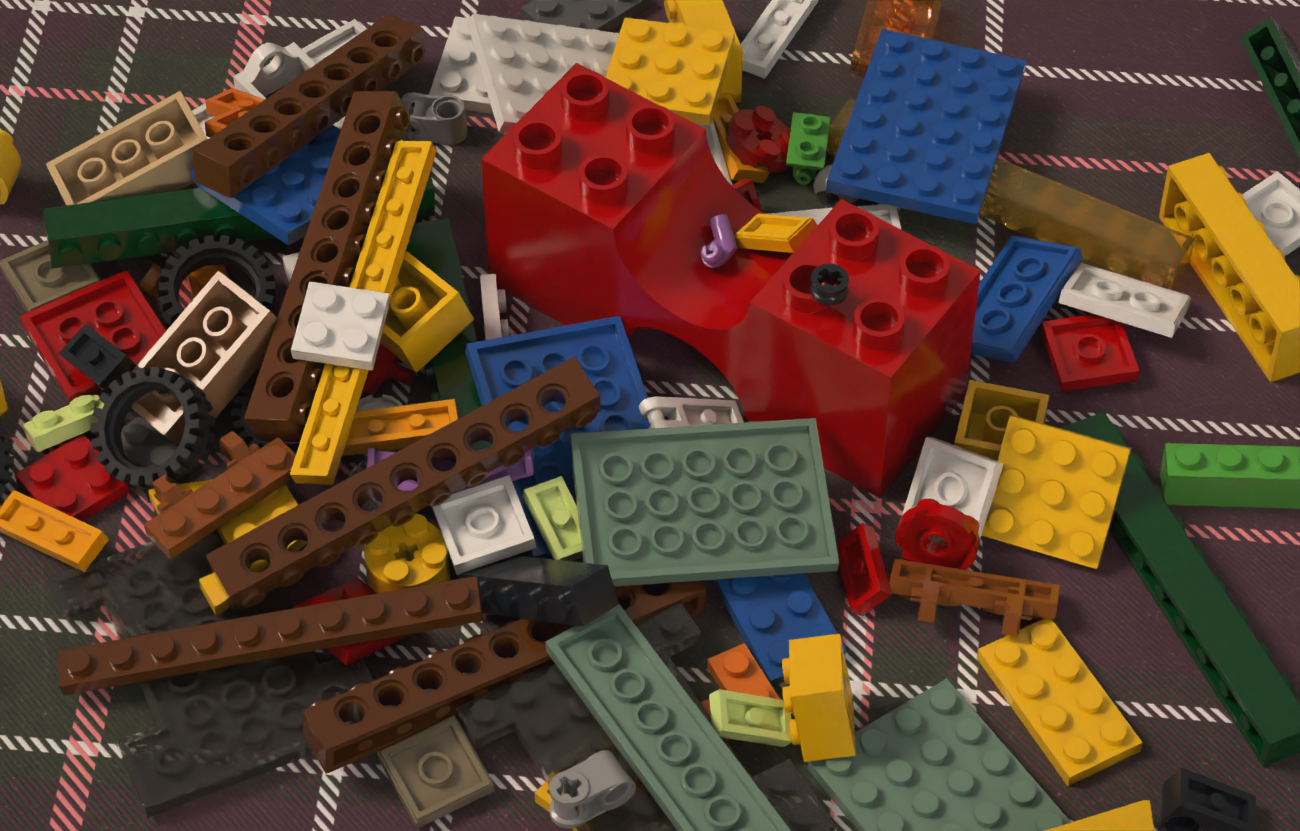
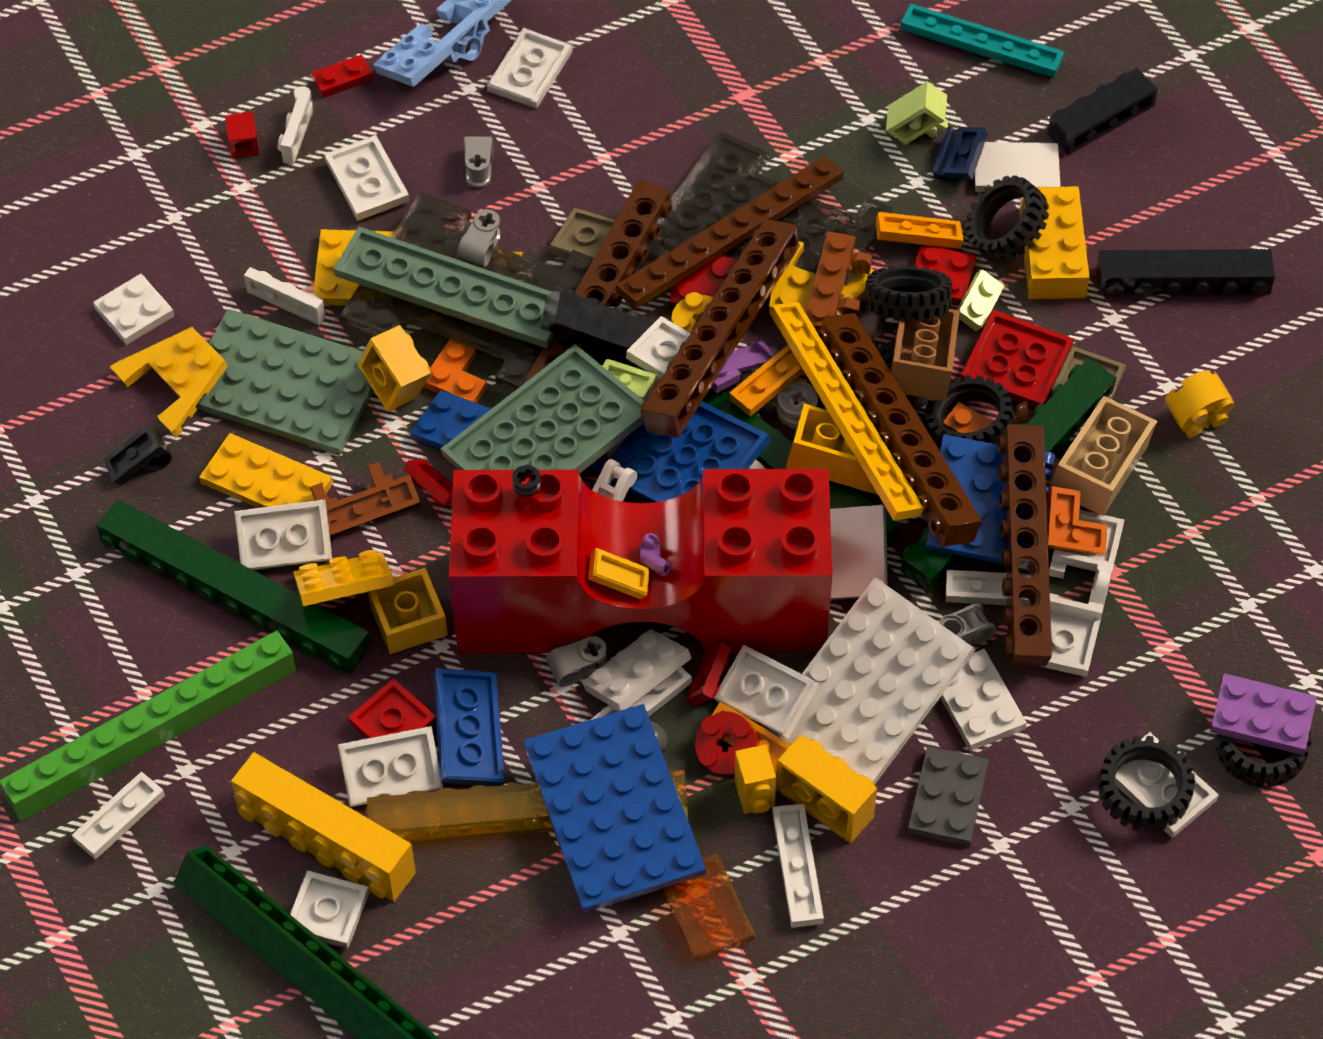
camera: 145 degrees right, 5 degrees up
(96, 358) = (985, 321): black plate -> none
(340, 326) = (840, 374): white plate -> none
(458, 226) = (857, 549): none -> white tile
(673, 65) = (812, 705): yellow plate -> none
(750, 718) = (434, 338): yellowish green plate -> none
(767, 77) = (755, 779): none -> yellow brick
(807, 145) = (692, 757): bright green hinge -> none
(933, 519) = (397, 512): red plate -> none
(955, 479) = (409, 547): white plate -> none
(1087, 597) = (283, 535): none -> white tile

